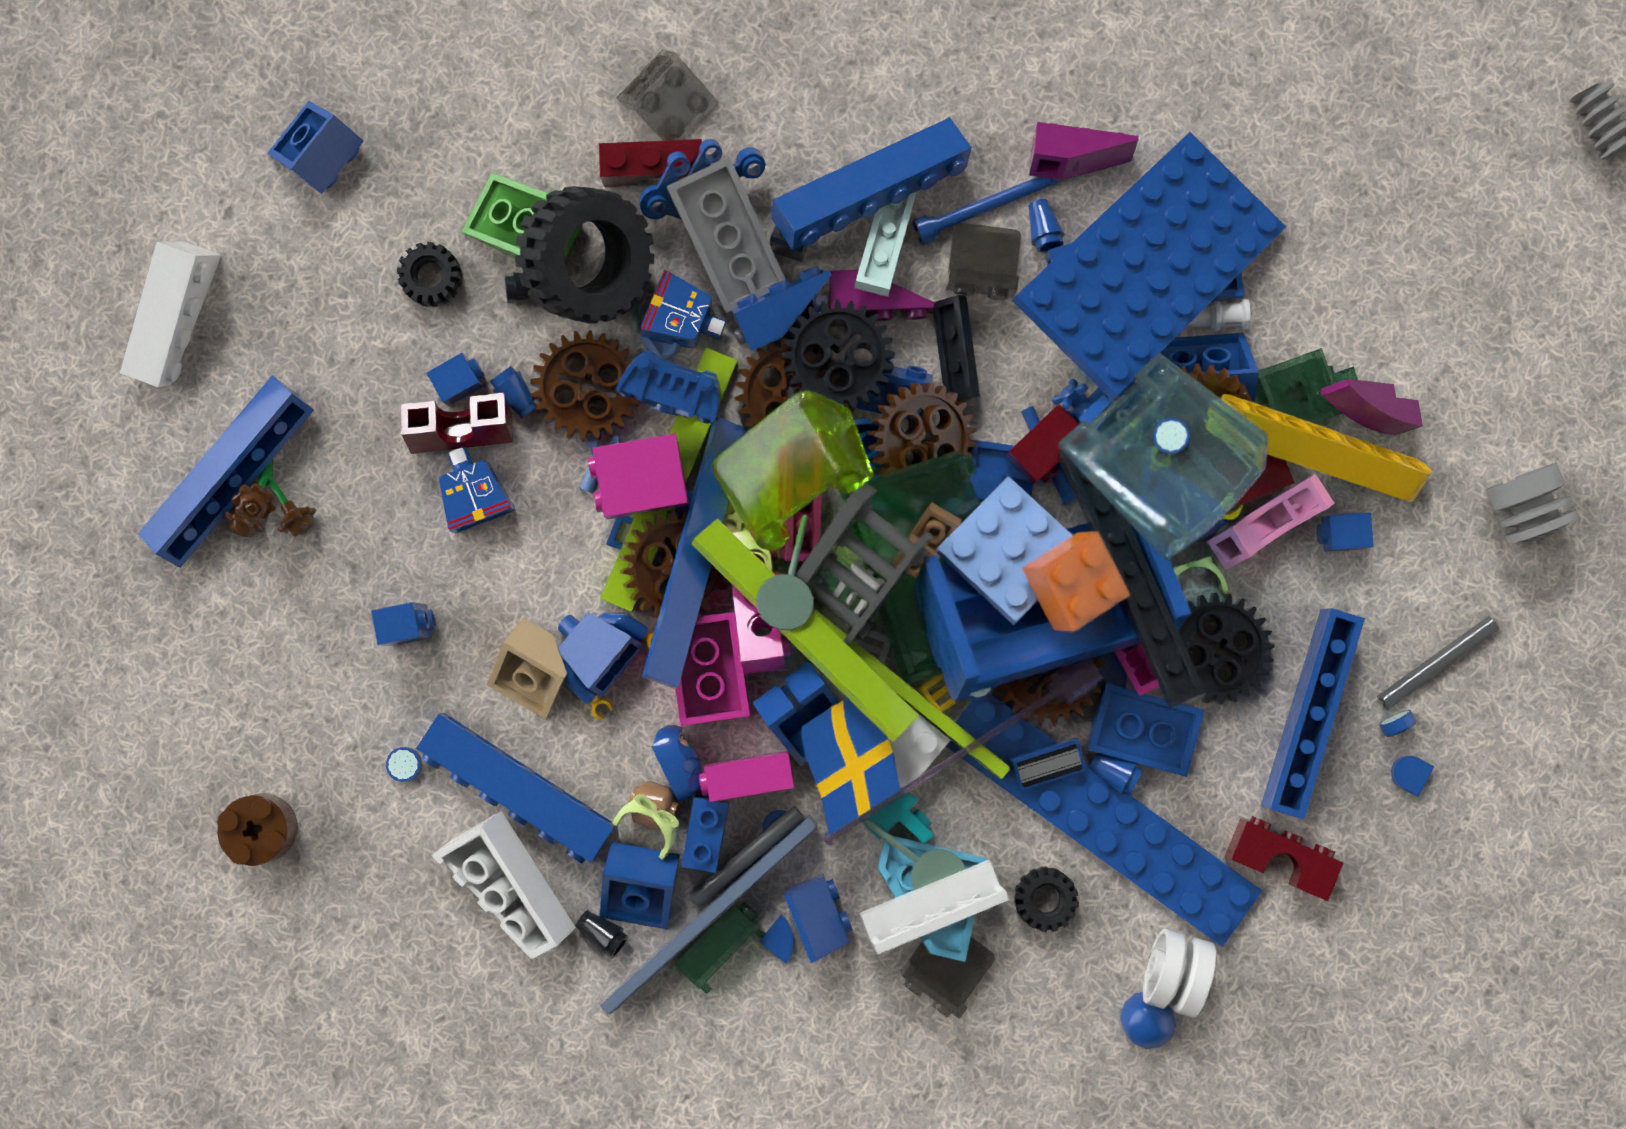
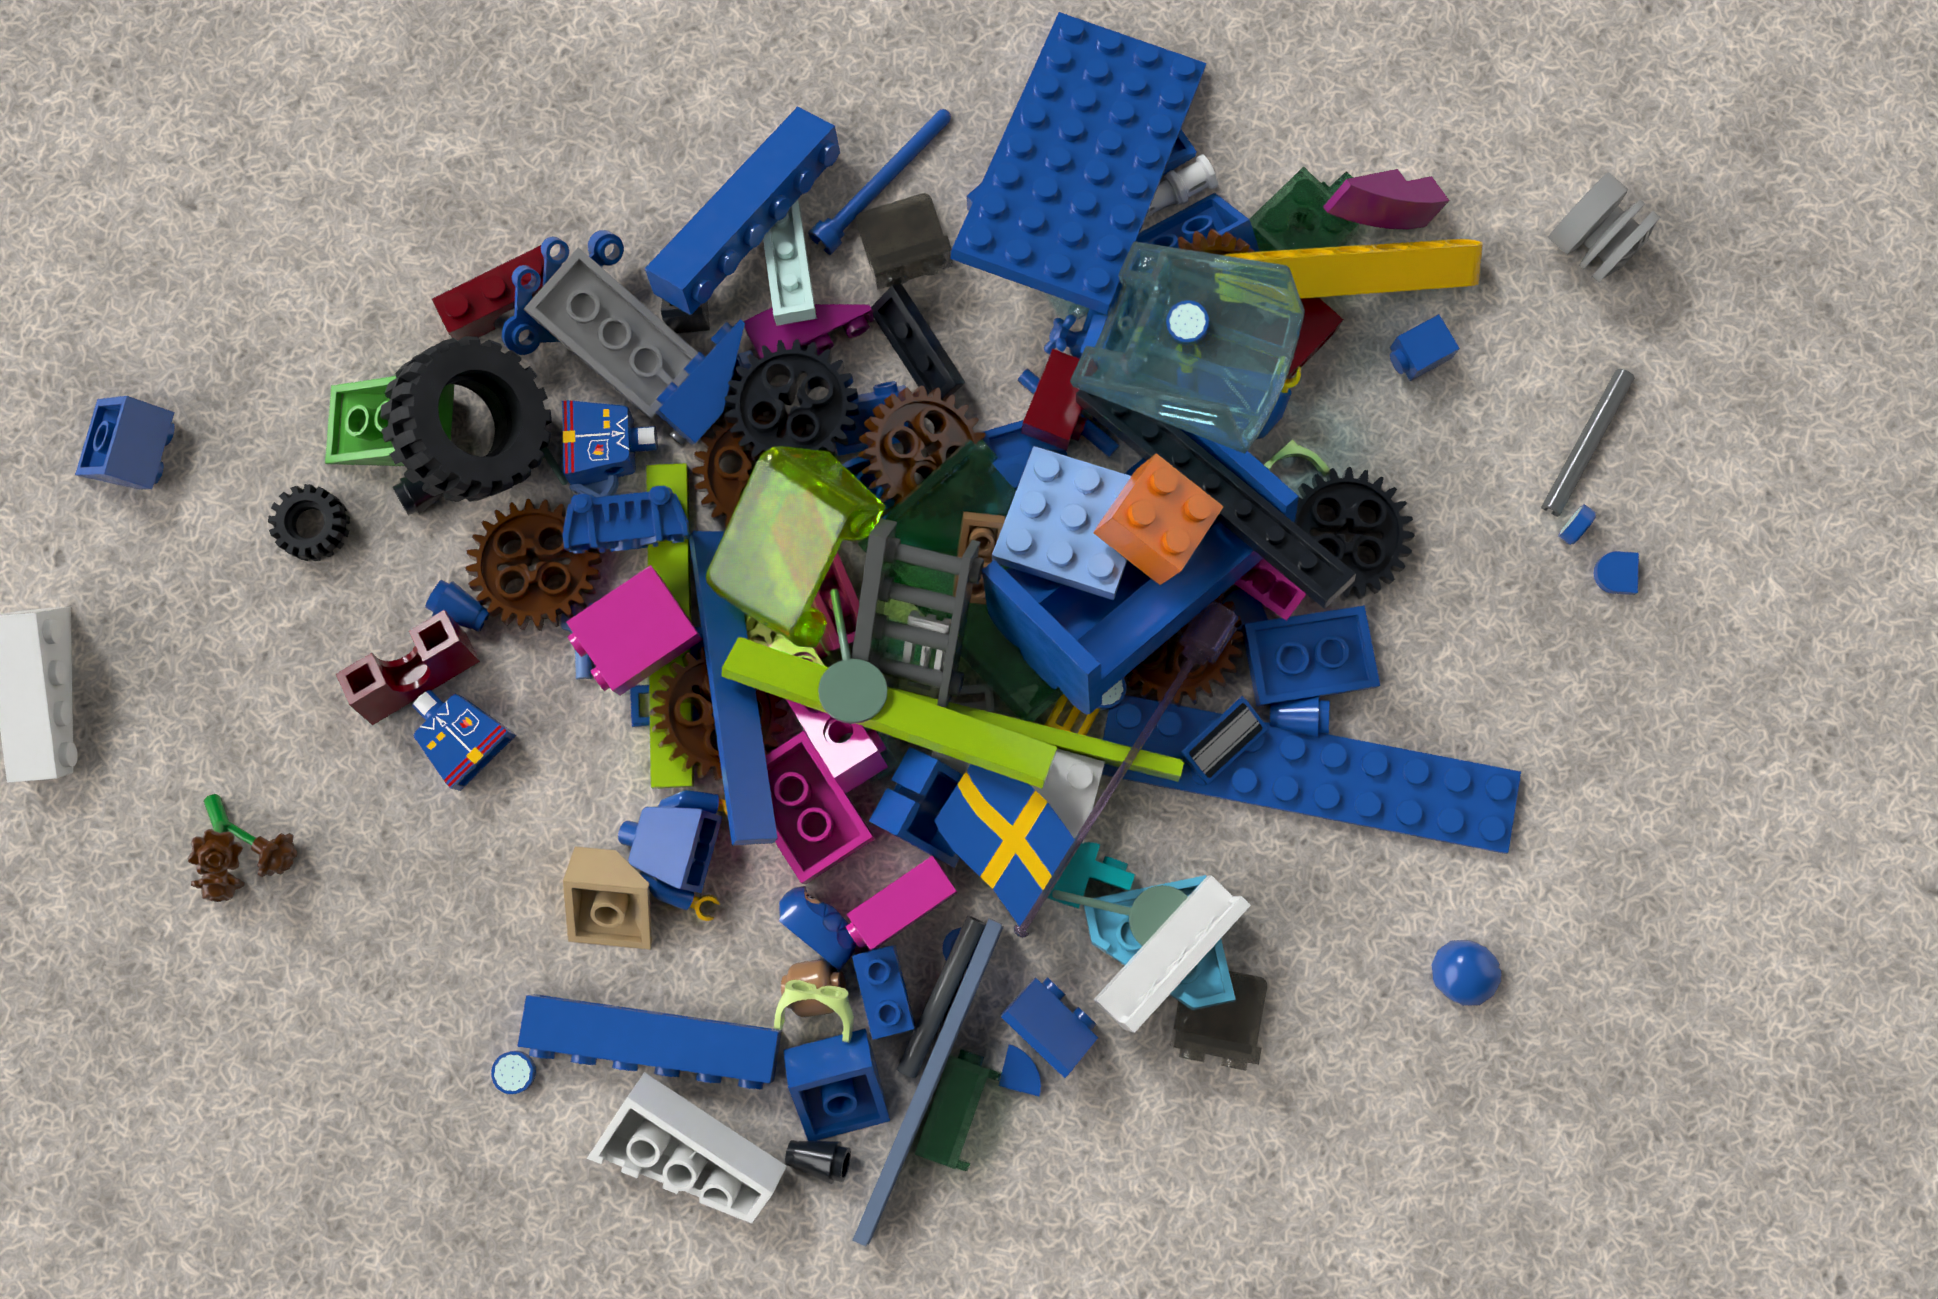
camera: 20 degrees left, 5 degrees down
(230, 463) = (178, 810): blue brick -> none
(237, 833) = (353, 1220): reddish brown brick -> none
(403, 624) = (442, 913): blue brick -> none
(456, 378) = (387, 620): blue brick -> none
(668, 97) = (488, 220): clear smoke bracket -> none
(1044, 226) = (951, 176): blue cone -> none
(1067, 899) = (1317, 890): black tyre -> none
(1073, 151) = (946, 84): magenta slope -> none
(1179, 973) = (1475, 901): white wheel -> none
(1270, 521) = (1338, 371): bright pink arch -> none
(1312, 712) = (1481, 554): blue brick -> none
(1313, 869) = (1564, 722): dark red arch -> none

